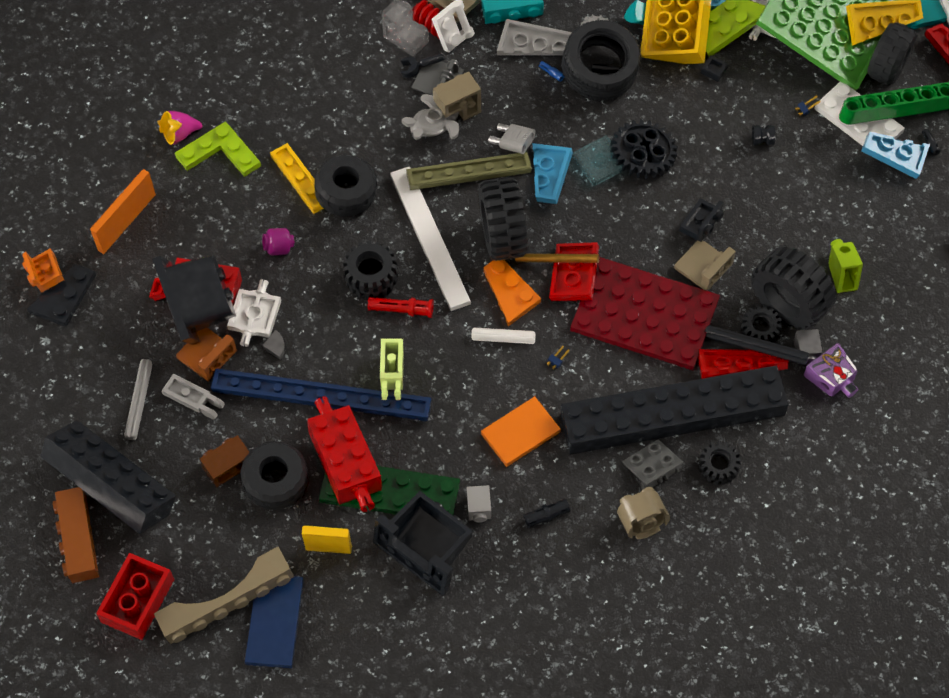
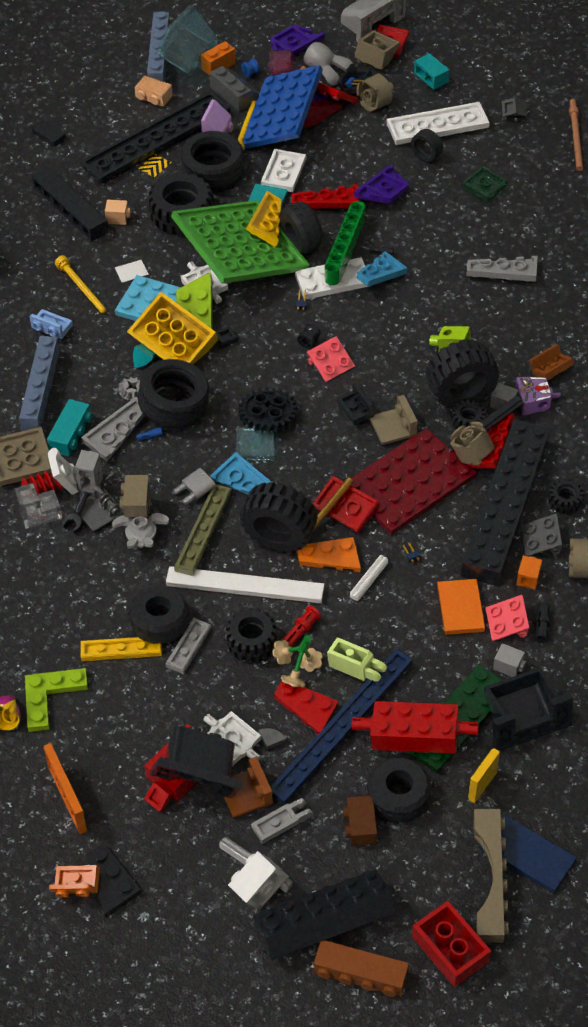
camera: 60 degrees left, 10 degrees down
(109, 405) = (258, 880): none -> white brick
(277, 241) = (175, 689): magenta head -> none
(328, 355) = (307, 704): none -> red wing
(334, 228) = (188, 646): none -> light grey tile
(366, 306) = (307, 659): none -> tan plant
(466, 44) = (88, 470): none -> light grey brick
(530, 479) = (508, 618): none -> coral hinge
(598, 472) = (529, 572): none -> orange brick
(715, 341) = (471, 443): none -> dark tan brick
(748, 168) = (330, 359): none -> coral hinge
(887, 367) = (550, 363): none -> dark orange bracket

